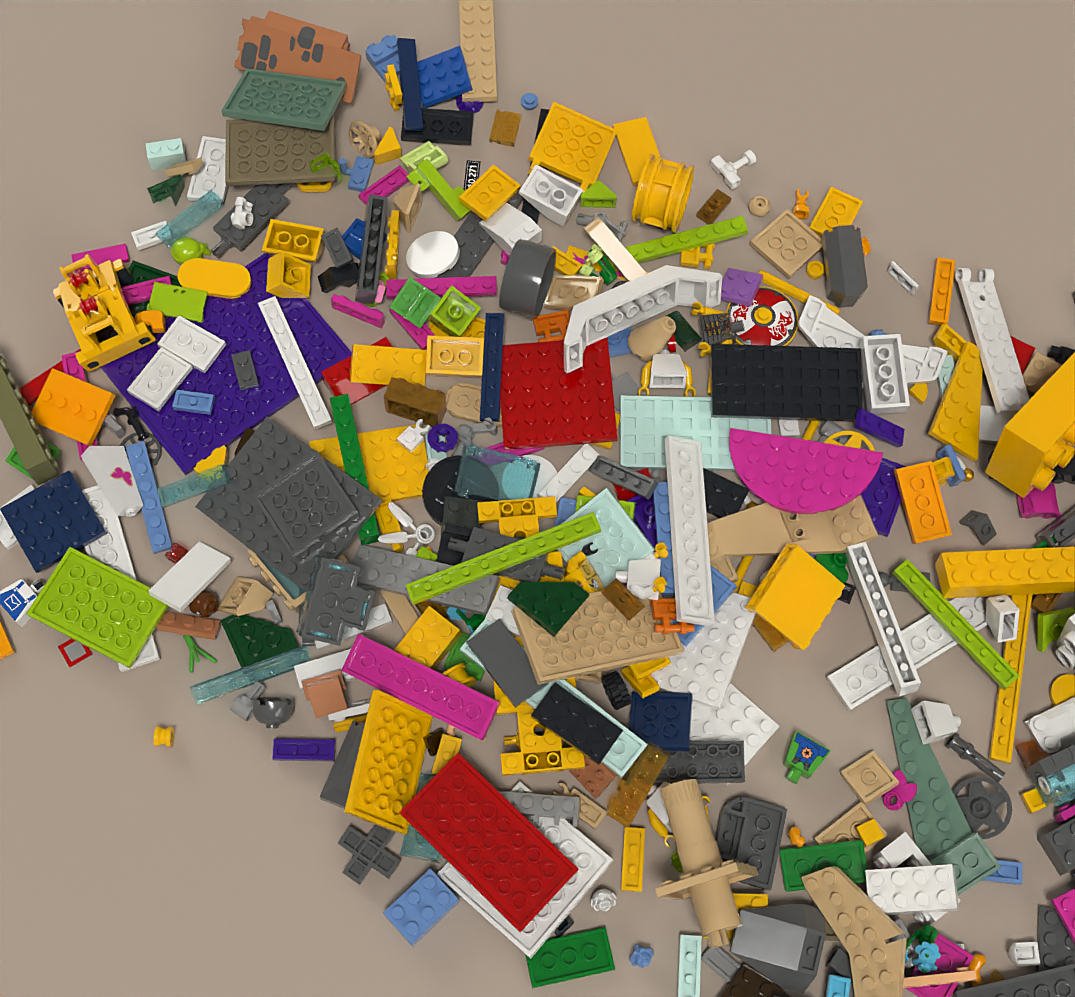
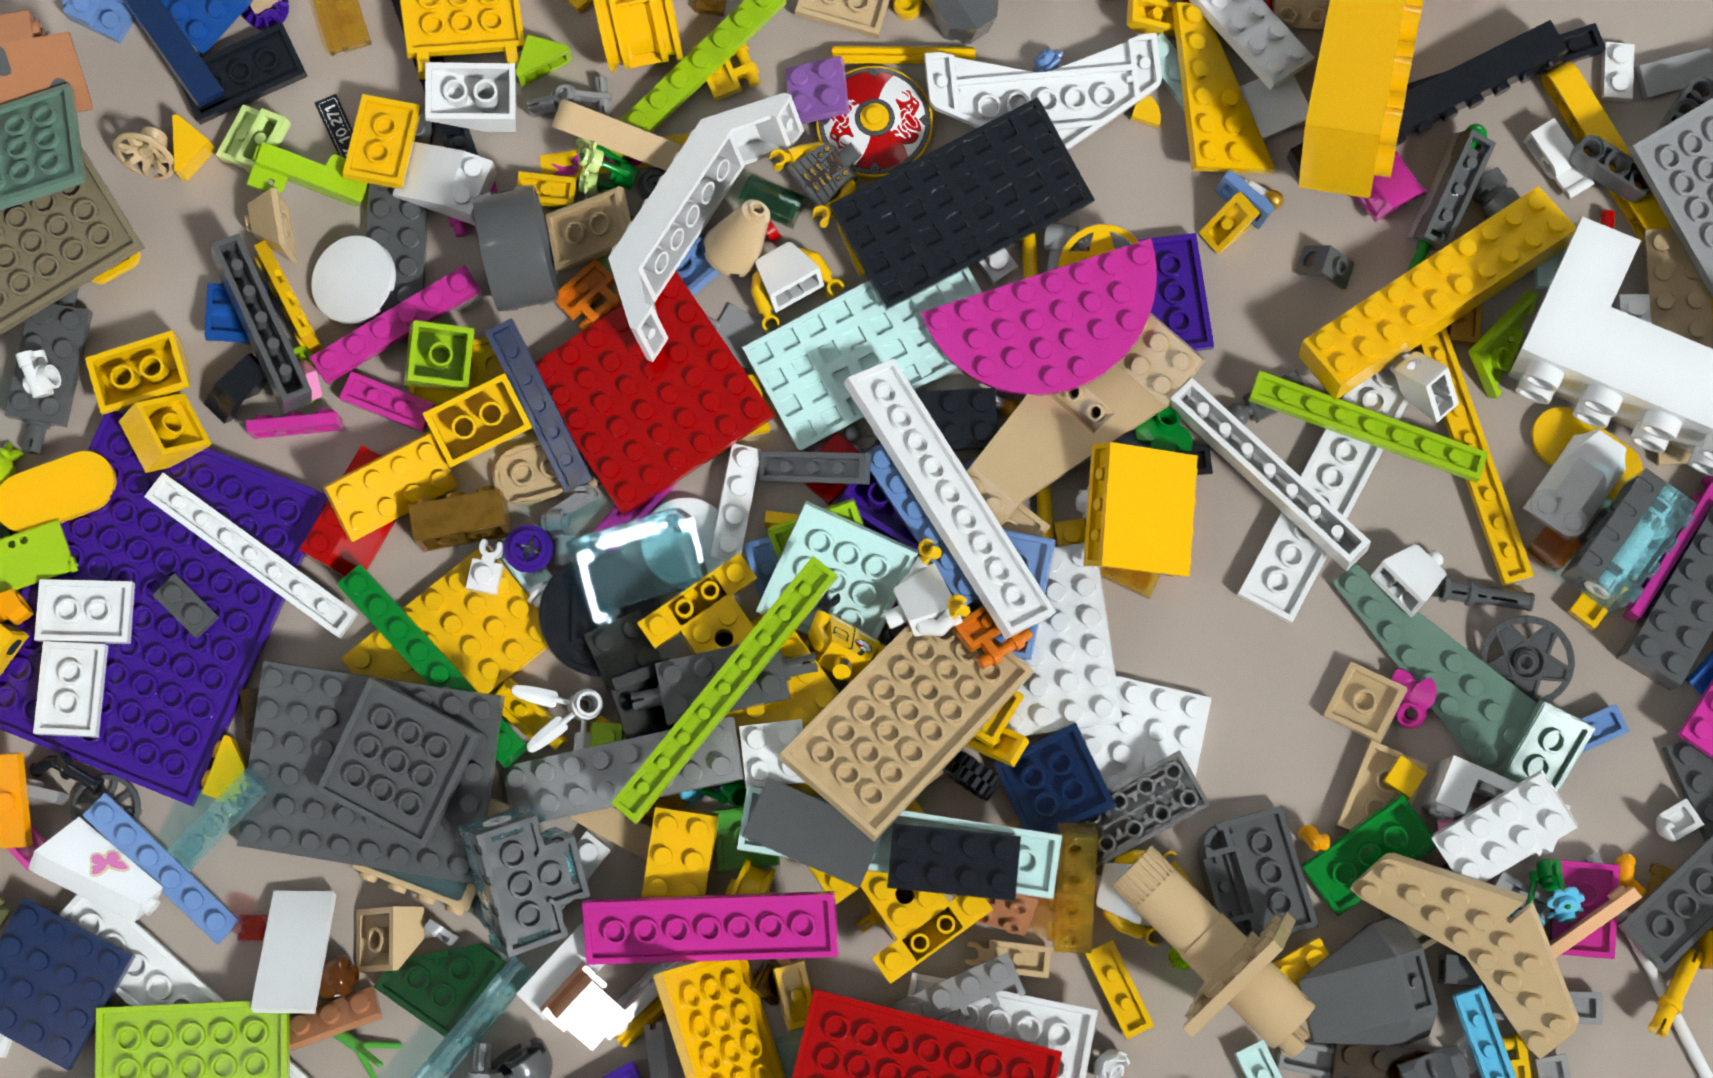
camera: 30 degrees left, 10 degrees up
(193, 402) = (141, 696): medium blue plate -> none
(326, 161) = (115, 226): clear neon green bracket -> none
(337, 248) = (210, 349): dark grey hinge -> none
(359, 174) = (170, 210): medium blue plate -> none
(386, 185) = (219, 209): dark pink tile -> none
(393, 88) = (140, 48): yellow plate -> none
(414, 302) = (372, 370): bright green slope -> none
(548, 602) = (823, 716): dark green plate -> none
(622, 599) = (915, 650): pearl gold plate -> none
(803, 757) = (1266, 723): torso -> none
(879, 428) = (1122, 198): dark purple plate -> none
(884, 374) = (1090, 118): white brick -> none
(922, 502) = (1236, 275): light orange plate -> none

